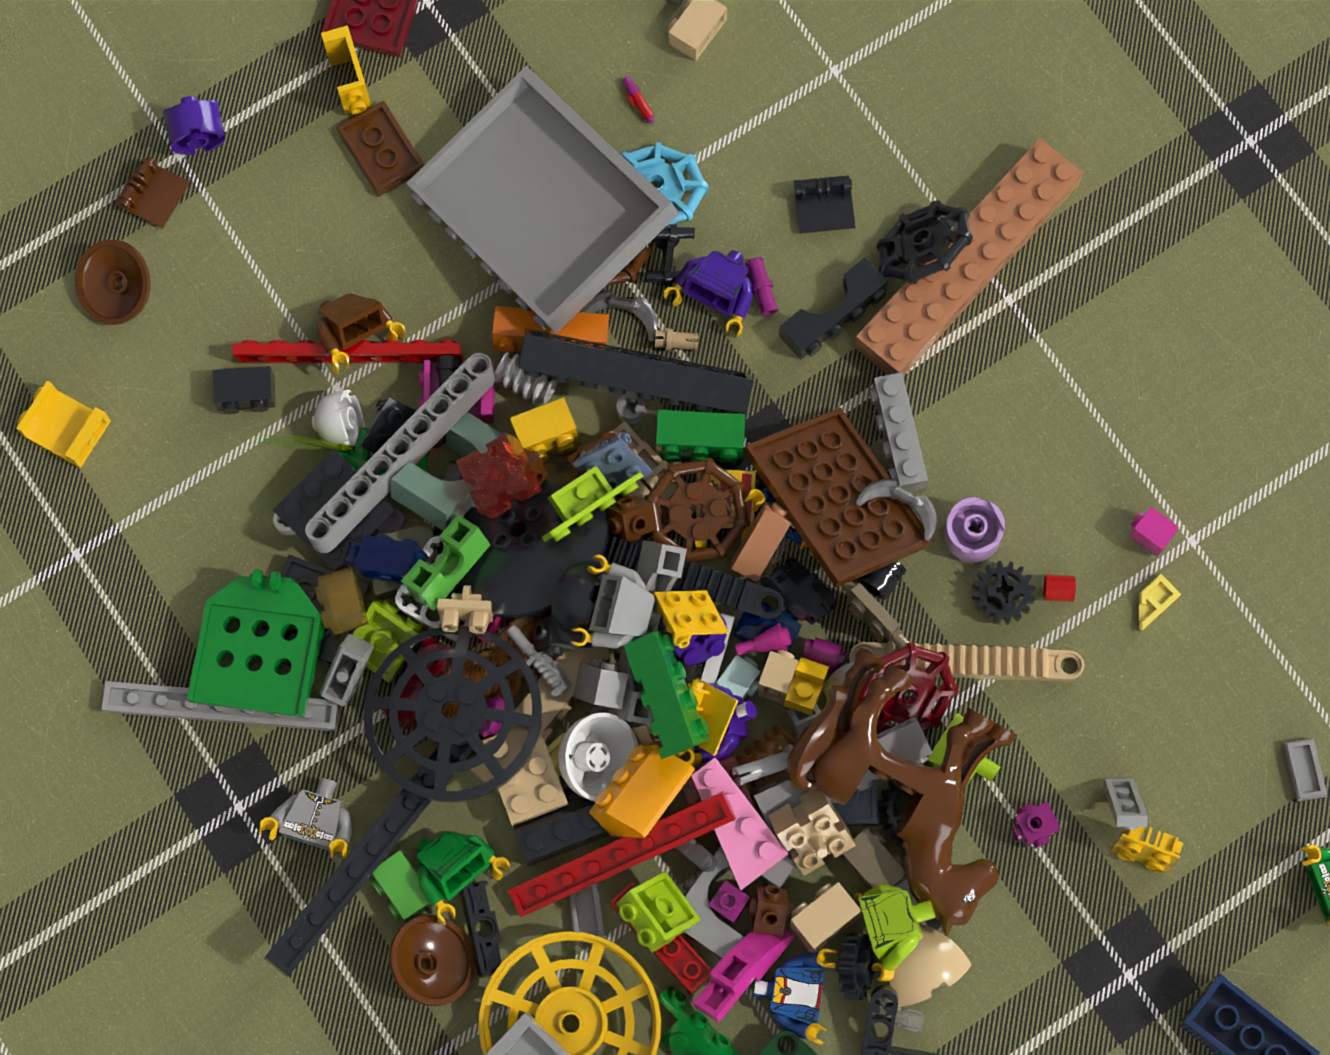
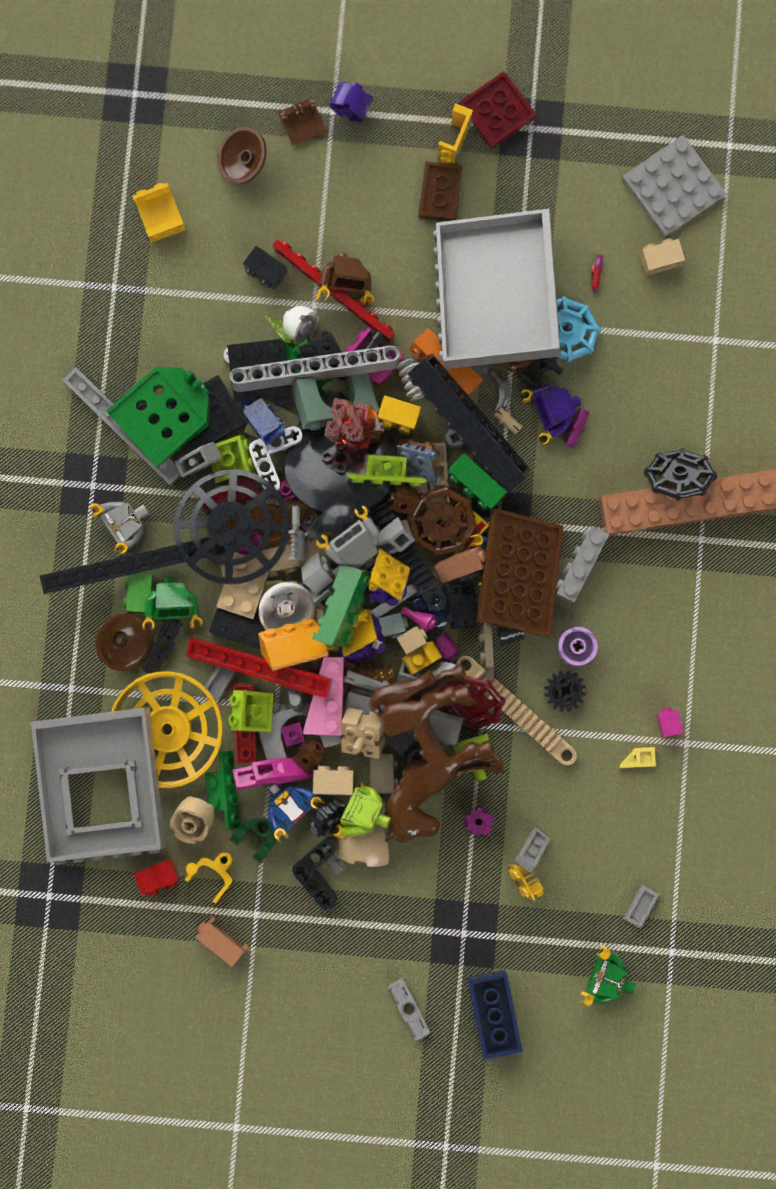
camera: 35 degrees right, 10 degrees up
(341, 601) = (224, 422): clear yellow brick -> none
(461, 549) = (303, 445): bright green arch -> none
(466, 608) = (281, 476): tan hips -> none
(807, 330) = (579, 471): black arch -> none
(824, 204) = (647, 409): black hinge -> none
(920, 504) = (559, 612): flat silver piece -> none
(1059, 588) = (595, 712): red beam -> none

